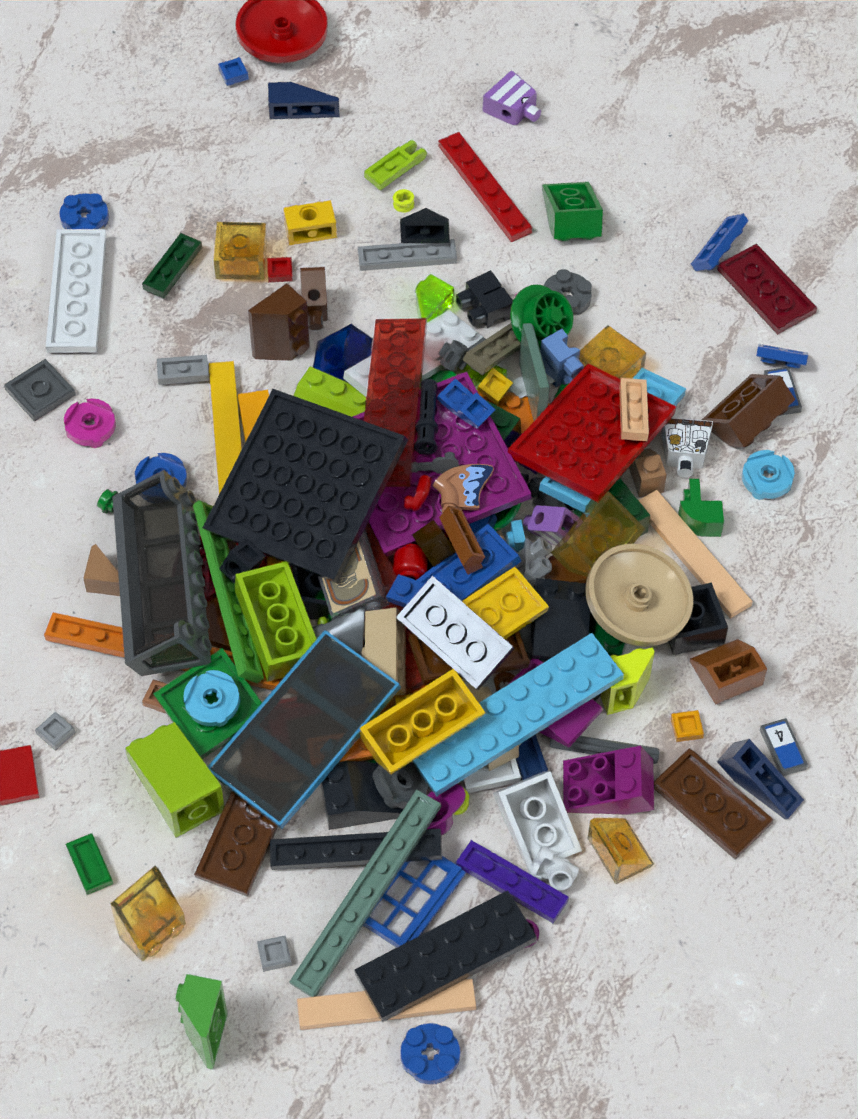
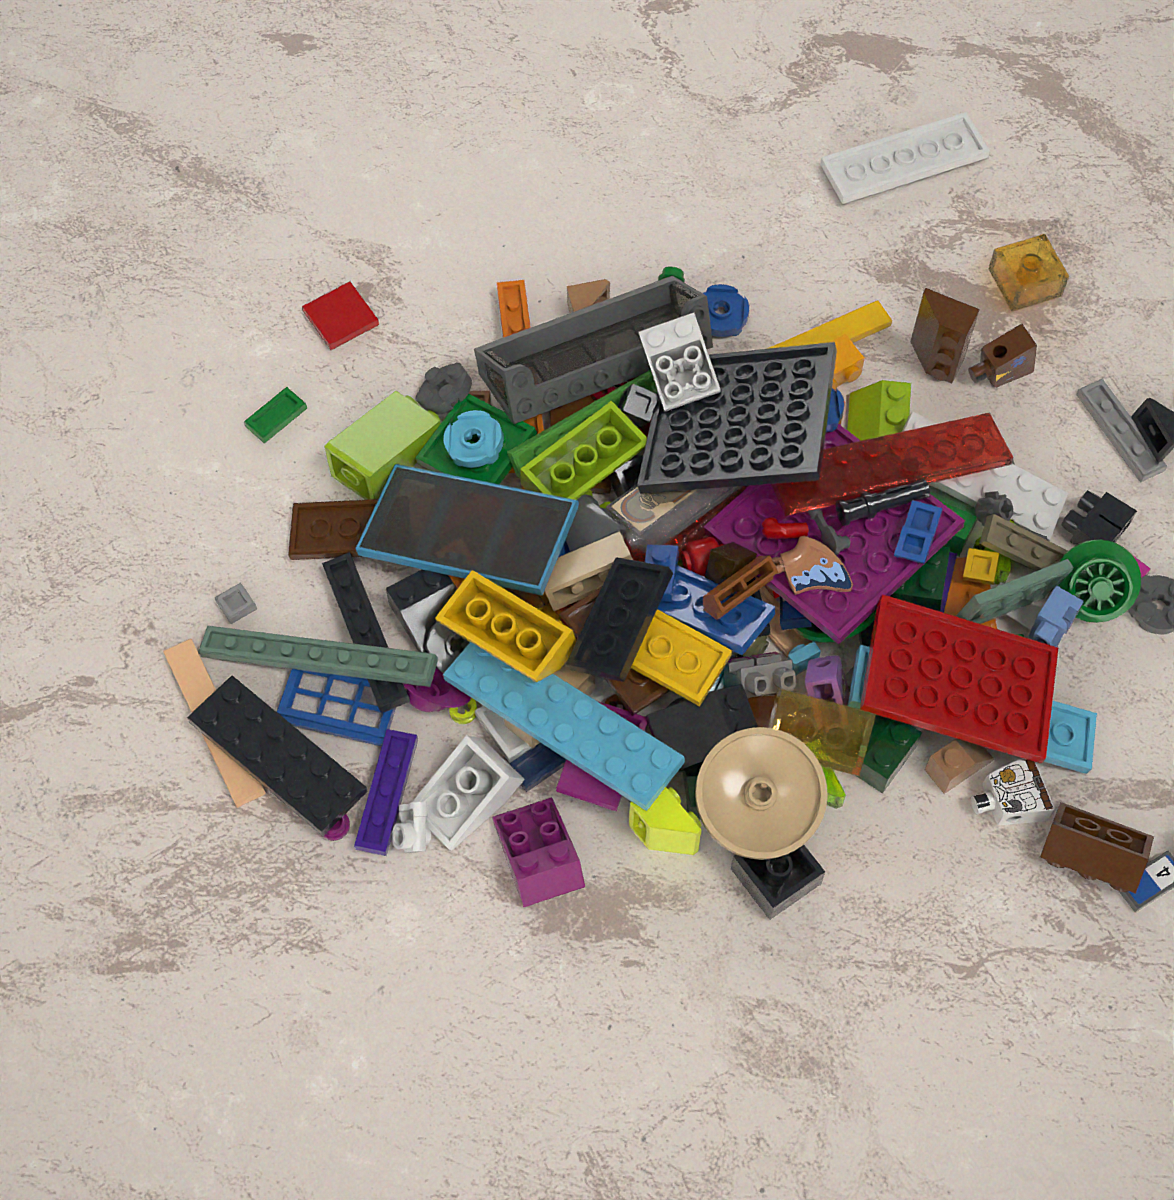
camera: 70 degrees right, 5 degrees up
(39, 390) = (774, 176): dark grey tile -> none
(55, 731) = (403, 334): light grey tile -> none
(84, 203) = (1009, 119): blue plate -> none
(94, 434) = (754, 241): dark pink plate -> none
(124, 710) = (443, 388): none -> dark grey plate
(147, 915) = (221, 472): clear yellow slope -> none
(172, 265) = (980, 224): dark green plate -> none
(182, 369) = (857, 280): light grey plate -> none
(203, 1014) = (124, 556): bright green slope -> none
(226, 510) = (679, 362): none -> white slope
(279, 269) = (1033, 319): red tile -> none
(310, 222) = (1105, 322): yellow brick -> none
(342, 351) = (947, 405): clear blue slope -> none
(418, 1065) = (158, 770): blue plate -> none
(433, 297) = (1069, 470): clear neon green slope -> none
(596, 746) = (585, 845): dark grey axle -> none
(613, 354) = (1087, 674): clear yellow brick -> none
(618, 848) = (464, 884): clear yellow slope -> none
(634, 409) = (1007, 708): light nougat plate -> none
(687, 726) = (646, 912): light orange tile -> none
(695, 554) = (872, 850): light nougat tile -> none
(702, 517) = (924, 836): green brick -> none
(712, 803) = (559, 969): reddish brown tile -> none
(729, 670) = (730, 931): dark orange slope -> none
(760, 778) = (605, 1010): dark blue slope -> none
(764, 487) = (1017, 916): medium azure plate -> none
(783, 747) = (661, 1025): tile -> none

